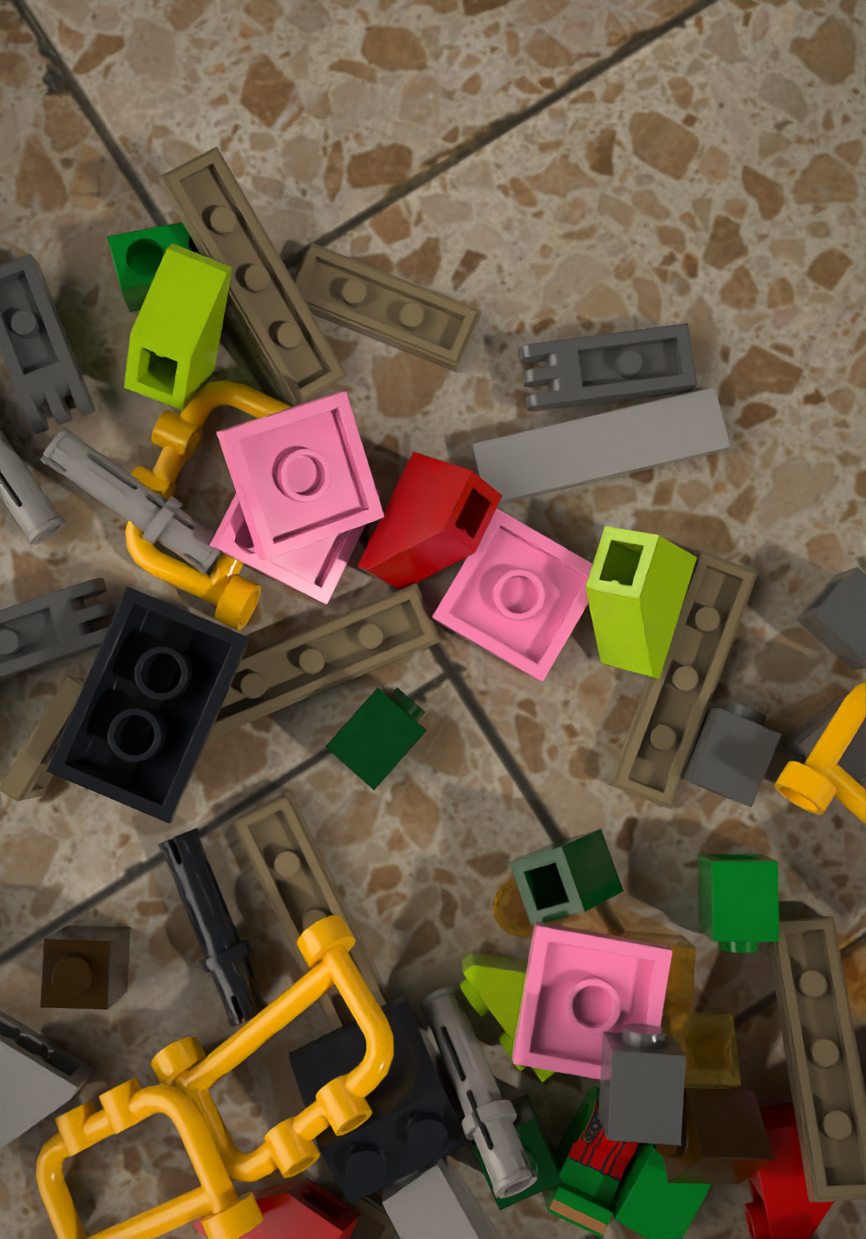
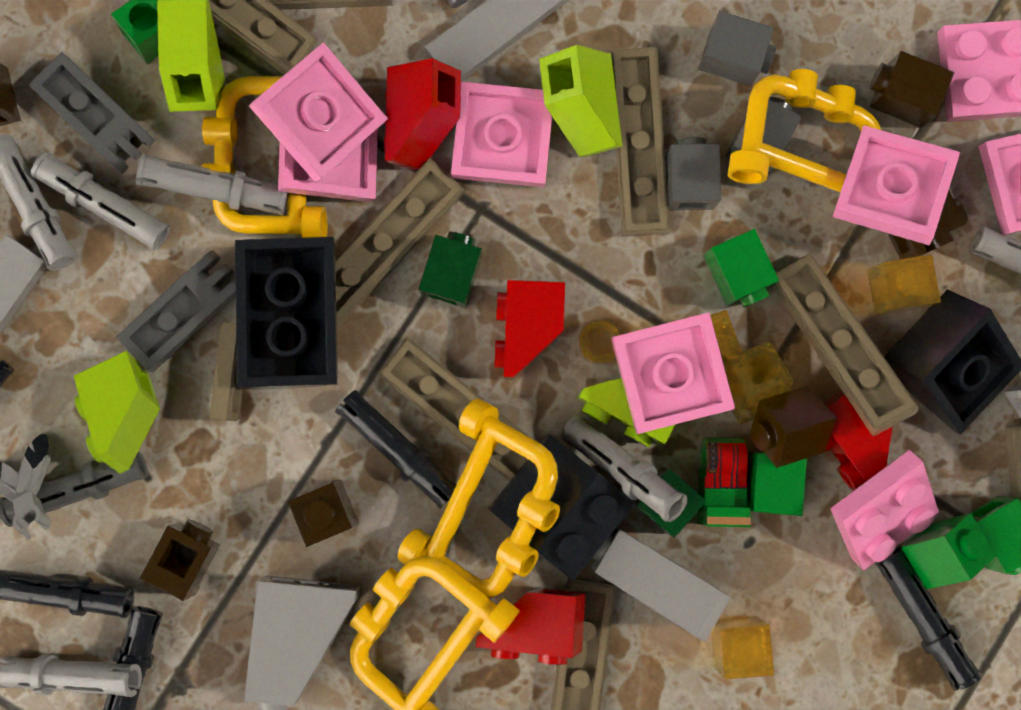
camera: 30 degrees left, 0 degrees up
(448, 849) = (532, 322): none -> red slope
(566, 877) = (619, 303): dark green brick -> none
(641, 1086) = (726, 402): dark grey brick -> none

